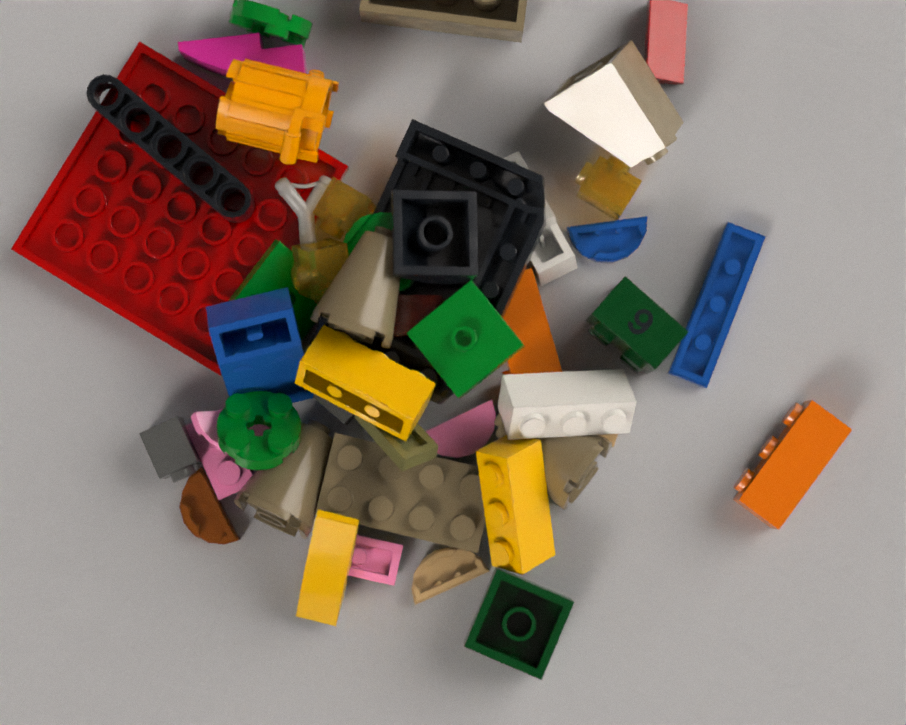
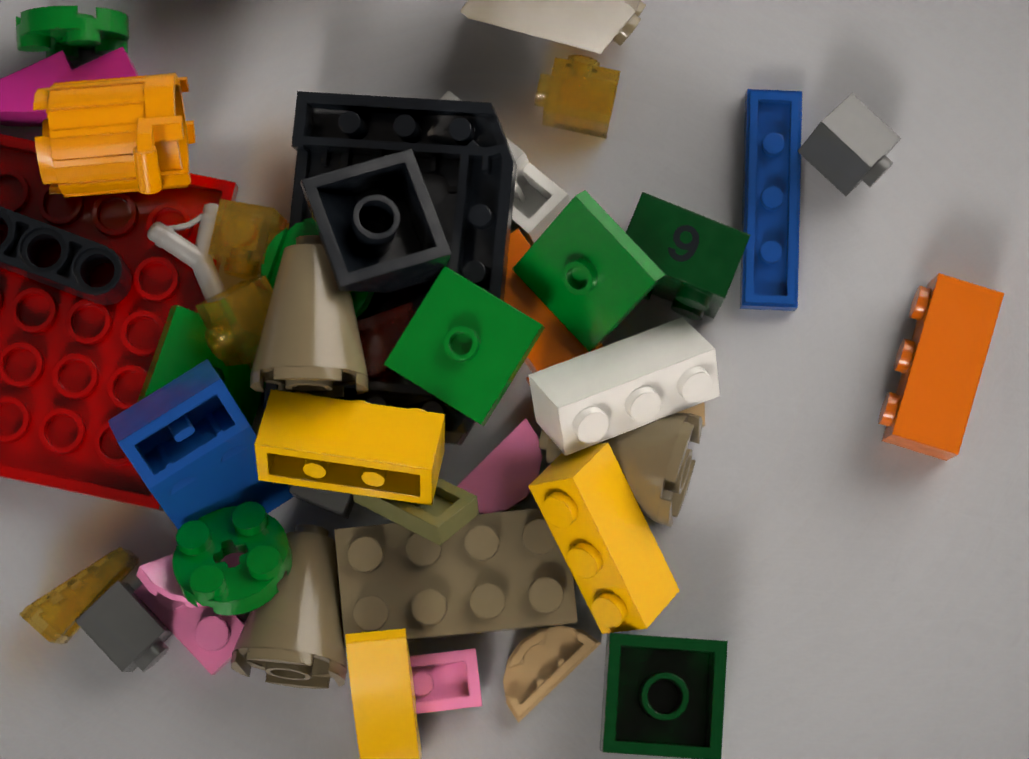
camera: 20 degrees left, 5 degrees down
(131, 421) = (57, 610): none -> clear yellow slope
(204, 512) = (197, 697): dark orange tile -> none
(568, 317) = (587, 271): none -> green plate
(608, 240) = (603, 165): blue tile -> none
(784, 288) = (850, 146): none -> dark grey brick

